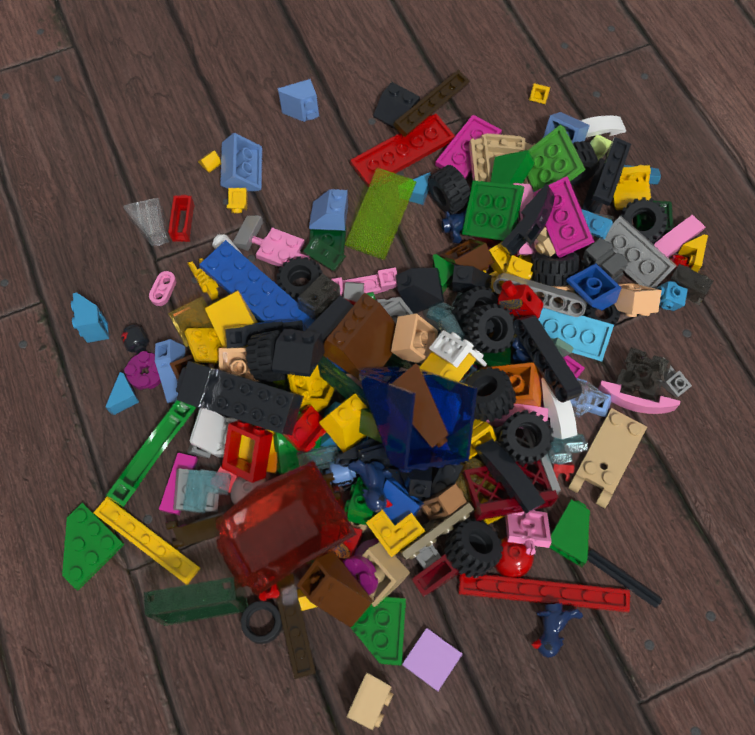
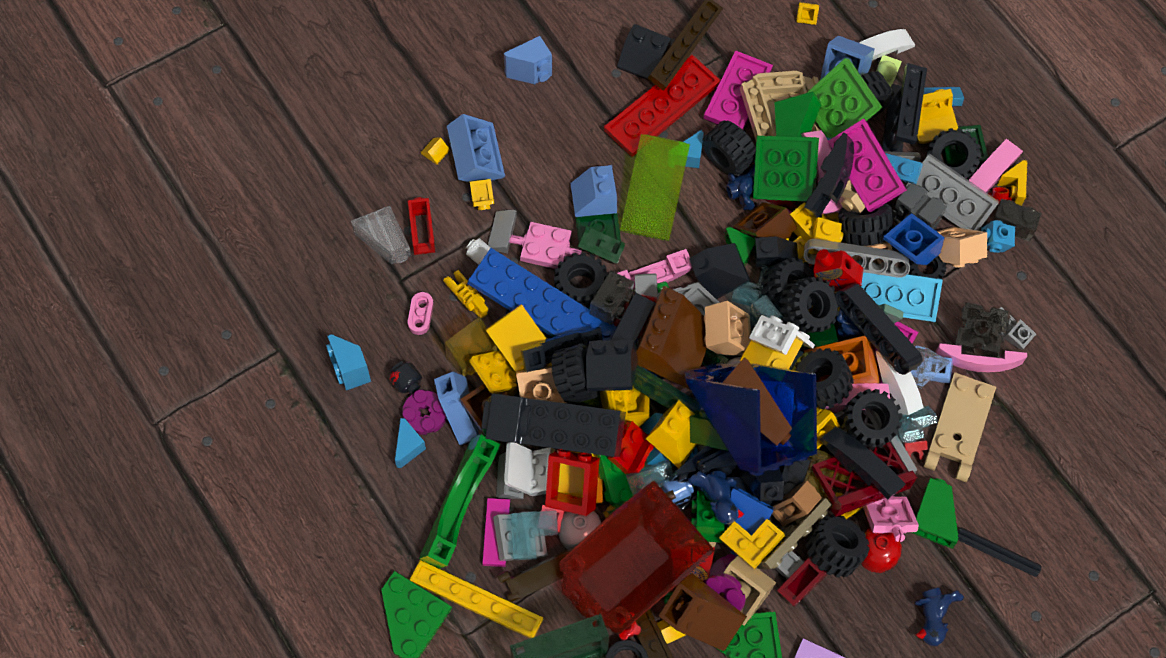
camera: 15 degrees left, 0 degrees up
(546, 592) = (918, 580): red tile -> none

